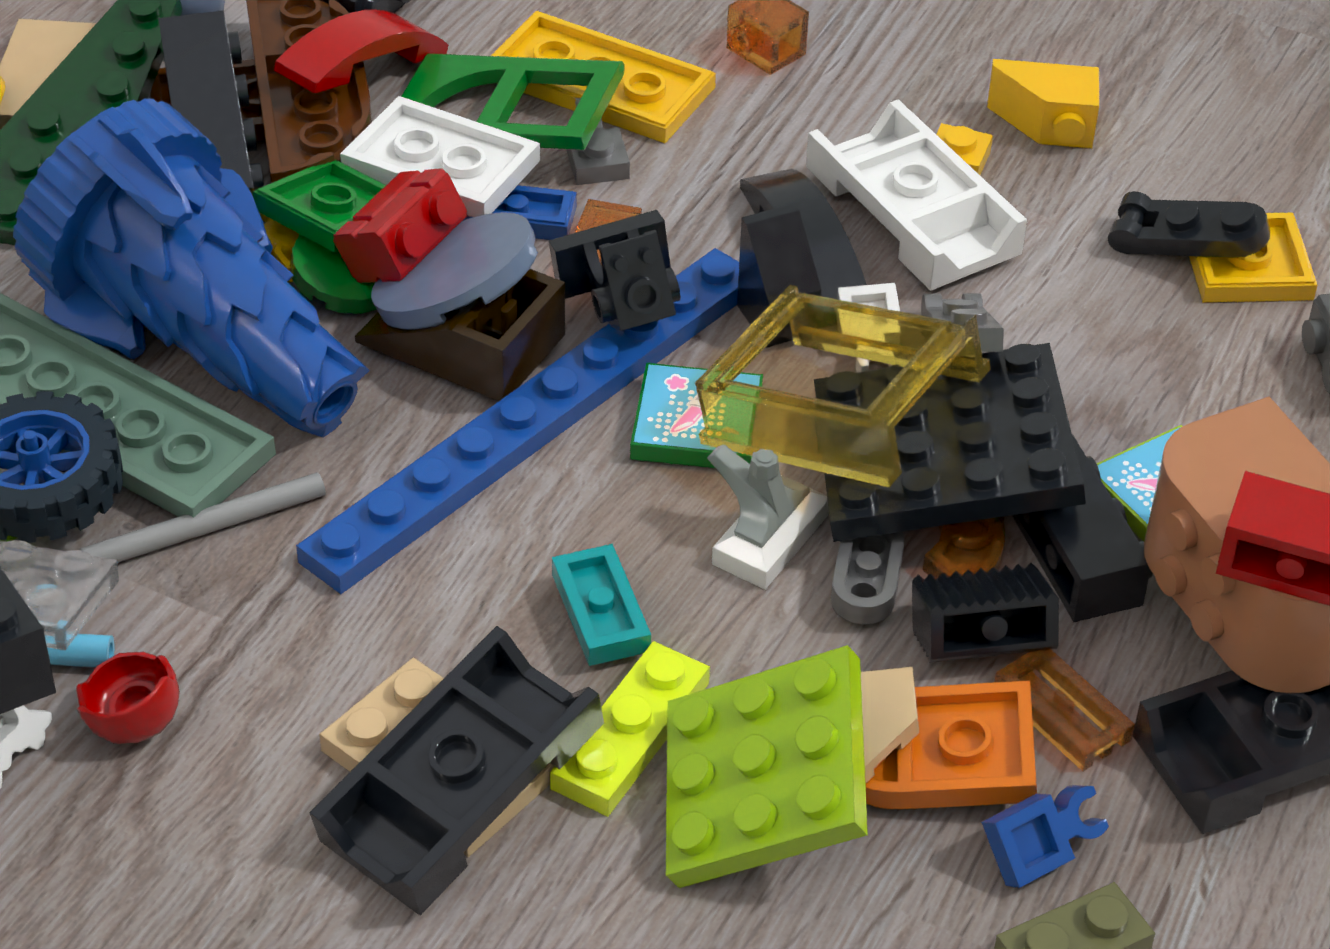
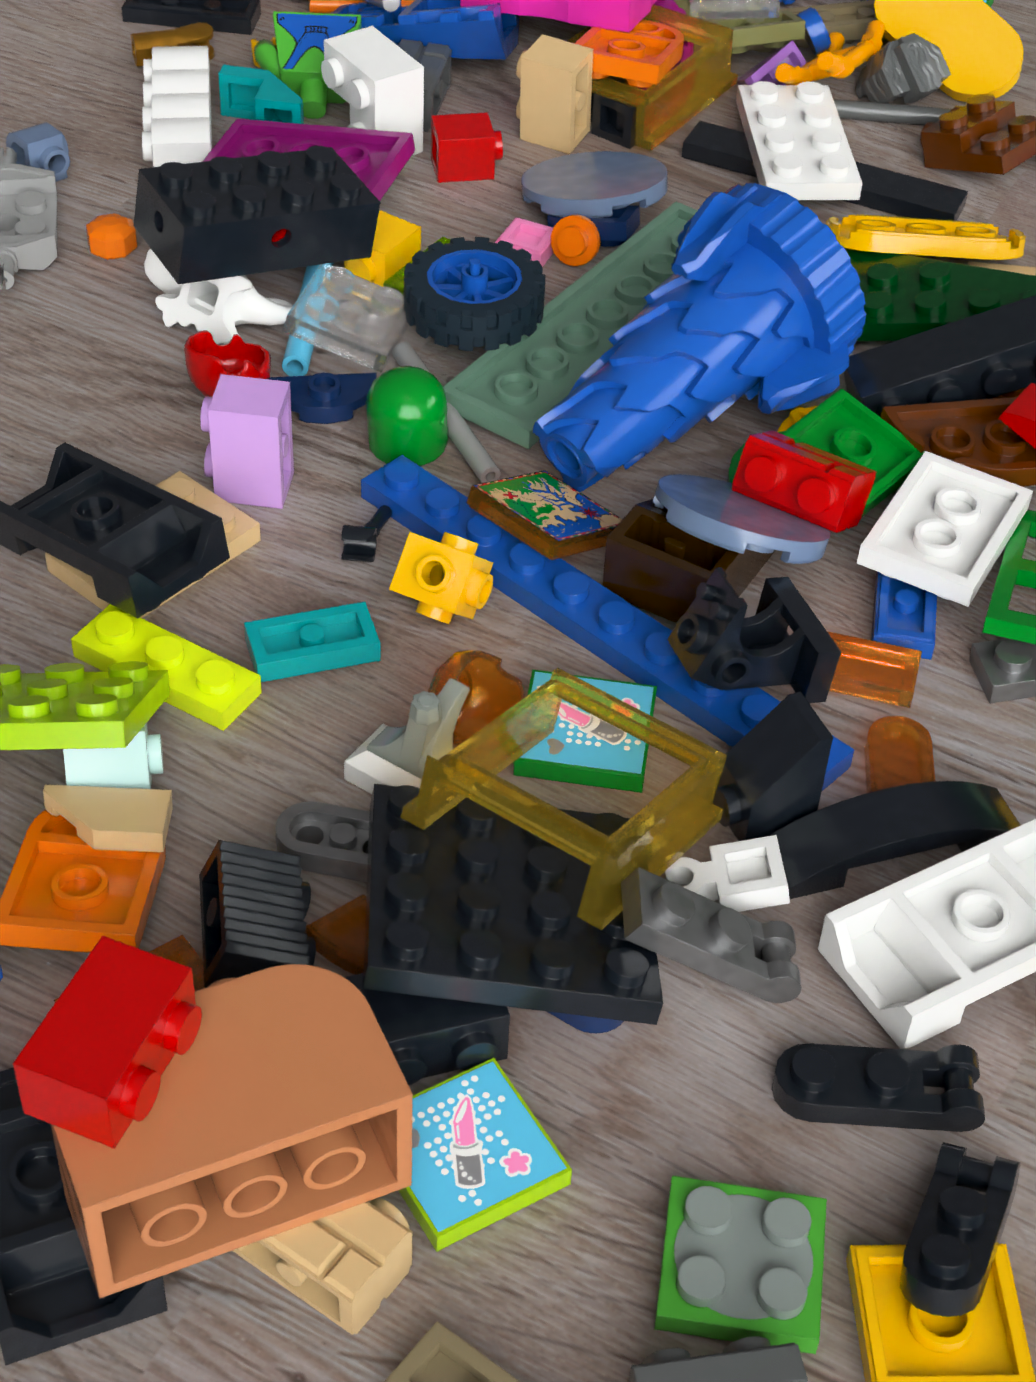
camera: 90 degrees right, 0 degrees up
(172, 617) = (328, 396): none -> dark blue plate
(246, 532) = (407, 416): none -> green helmet
(314, 641) = (249, 440): none -> lavender brick
(408, 426) = (544, 513): none -> tile
(434, 577) = (362, 541): none -> black hand
(517, 496) = (443, 576): none -> yellow brick
(687, 479) = (490, 691): none -> clear orange hair
(701, 228) = (898, 753): none -> clear orange tile
(1057, 268) = (880, 1086): none -> black plate
(1229, 346) = (742, 1264): none -> light grey piece

